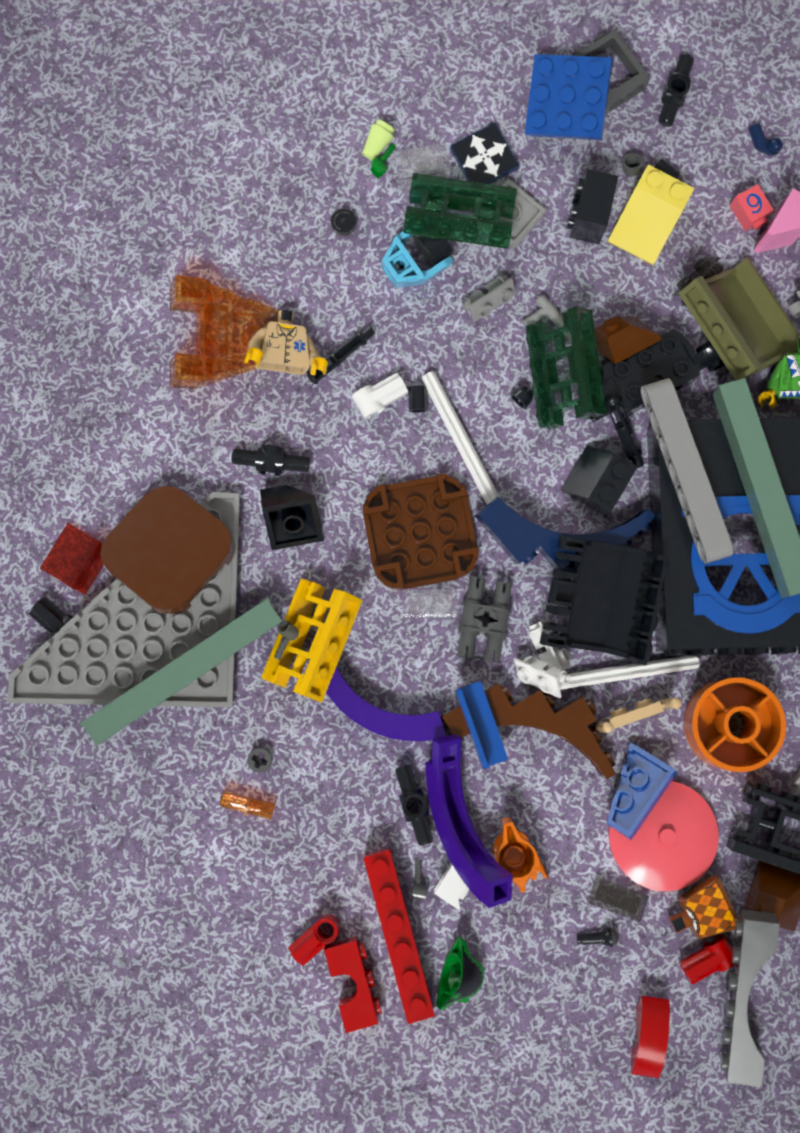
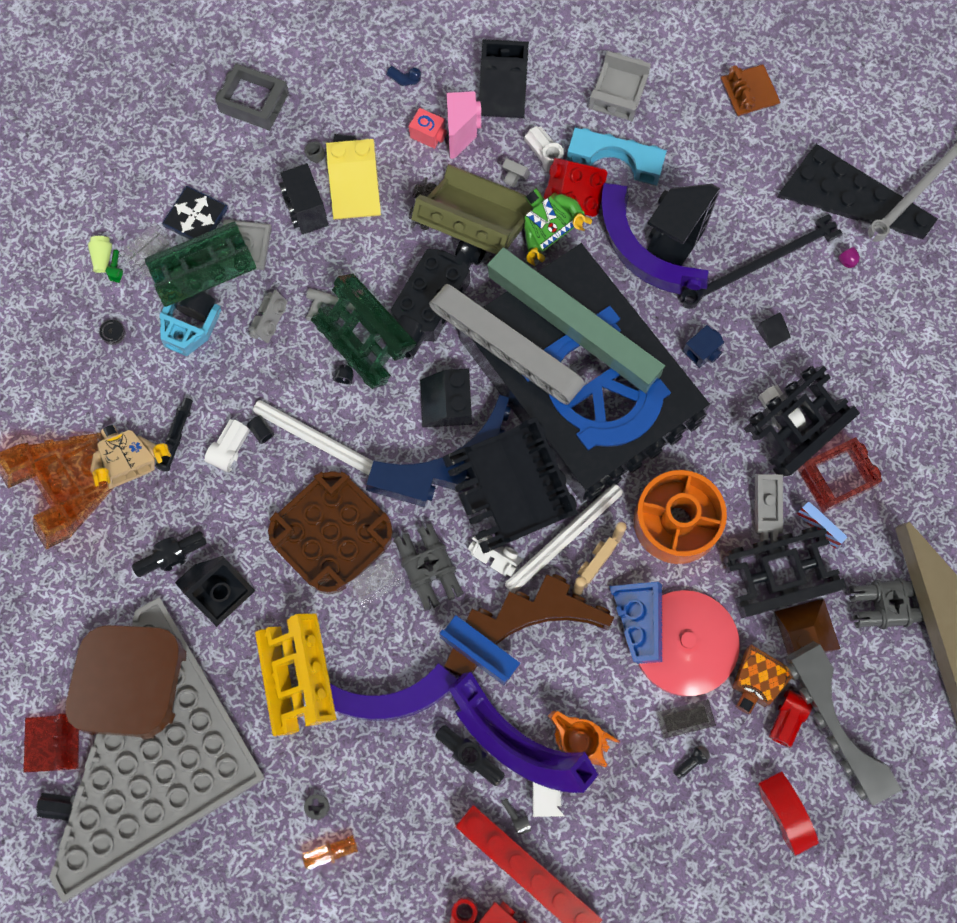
camera: 30 degrees left, 10 degrees down
(181, 672) = (200, 776): sand green tile -> none
(289, 633) = (272, 681): dark grey hand -> none
(459, 977) = (602, 872): green hat -> none
(534, 672) = (502, 581): white hinge -> none
(568, 96) = (231, 132): blue plate -> none
(624, 337) = (391, 280): reddish brown slope -> none
(624, 430) = (440, 348): black piece -> none
(681, 81) = (314, 88): black axle -> none

